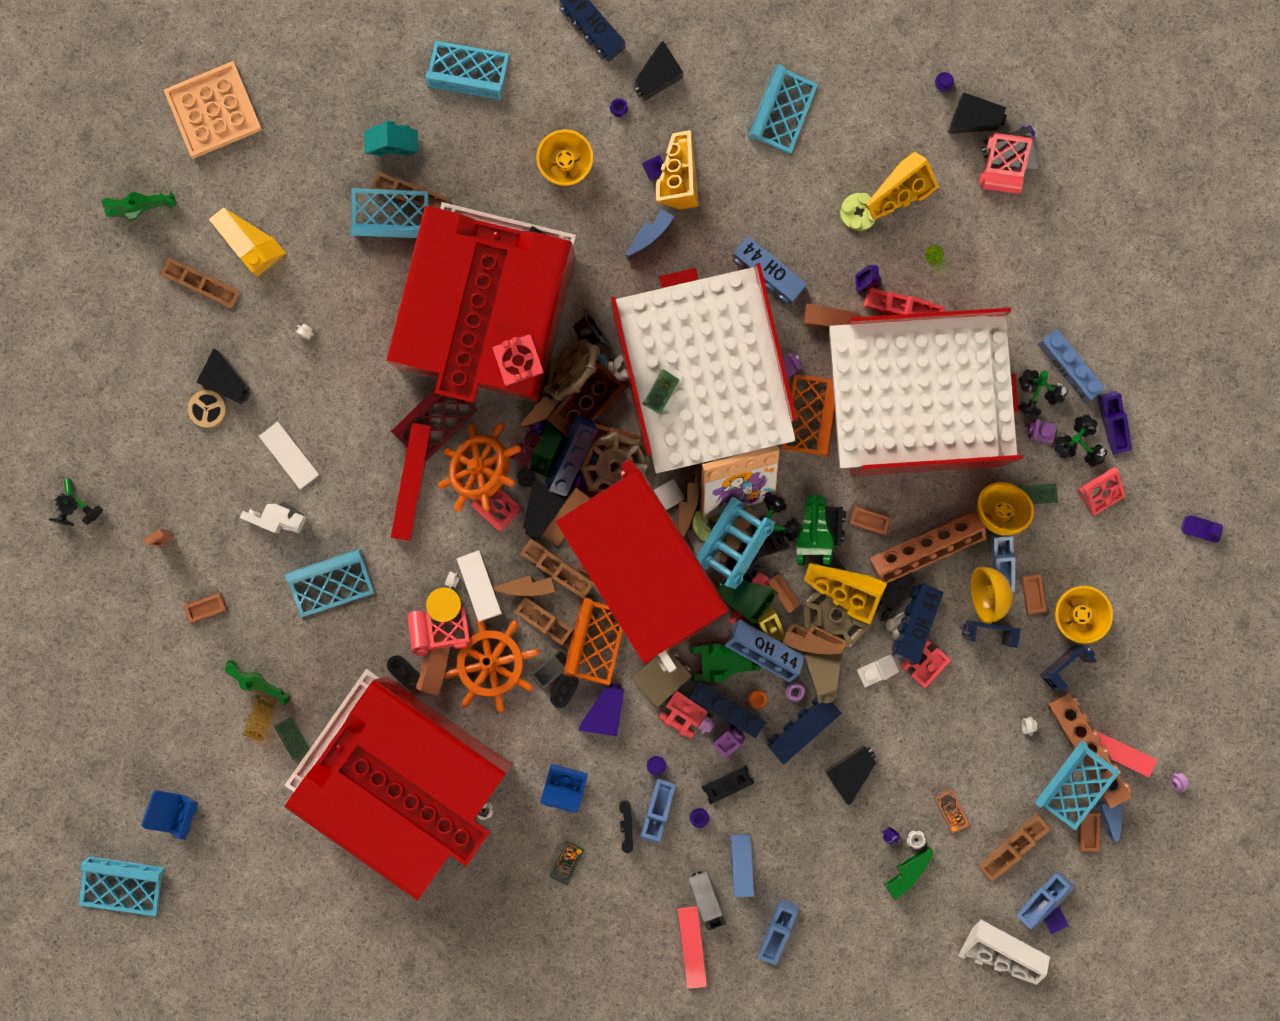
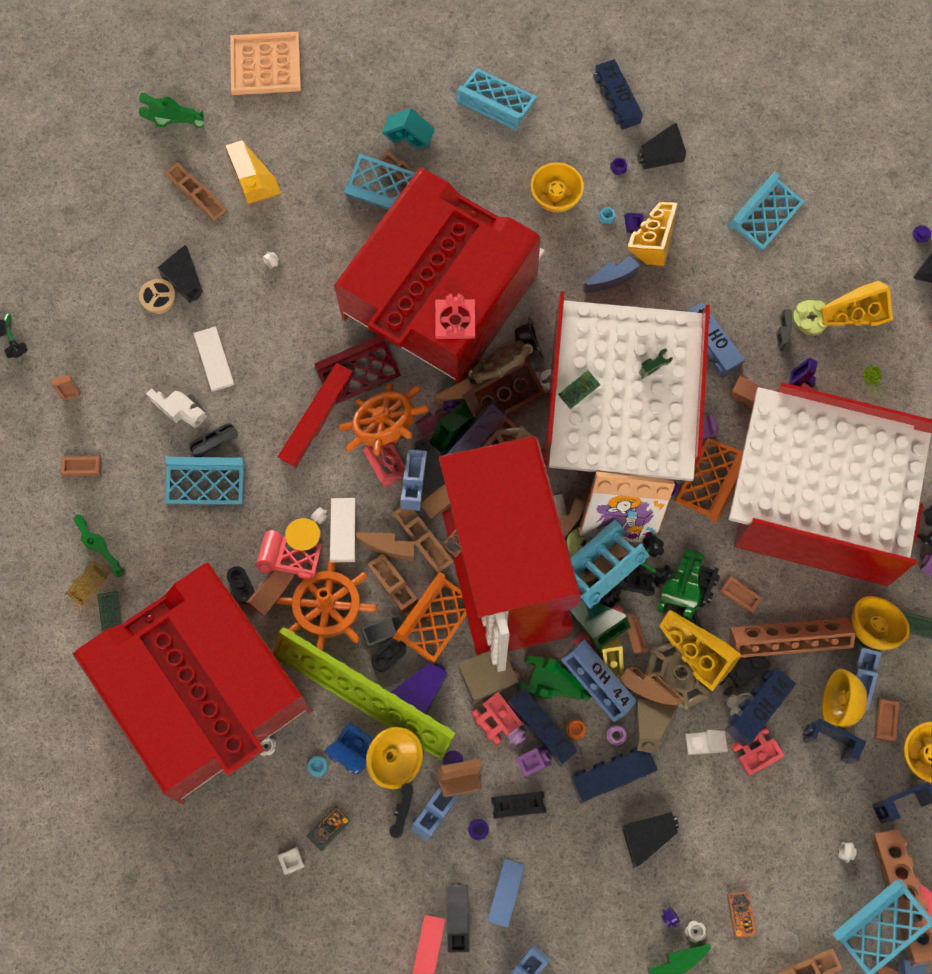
camera: 20 degrees right, 15 degrees down
(322, 540) = (213, 439): none -> black plate
(529, 518) = (413, 480): none -> medium blue slope
(536, 812) = (317, 766): none -> medium azure tile
(544, 902) = (291, 861): none -> white tile
(554, 735) = (361, 692): none -> lime plate
(610, 787) = (403, 761): none -> yellow dish
(624, 173) = (607, 211): none -> medium azure plate
(668, 781) = (460, 778): none -> medium nougat panel
(721, 344) = (650, 366): none -> dark green plate
(838, 240) = (785, 331): none -> dark grey slope

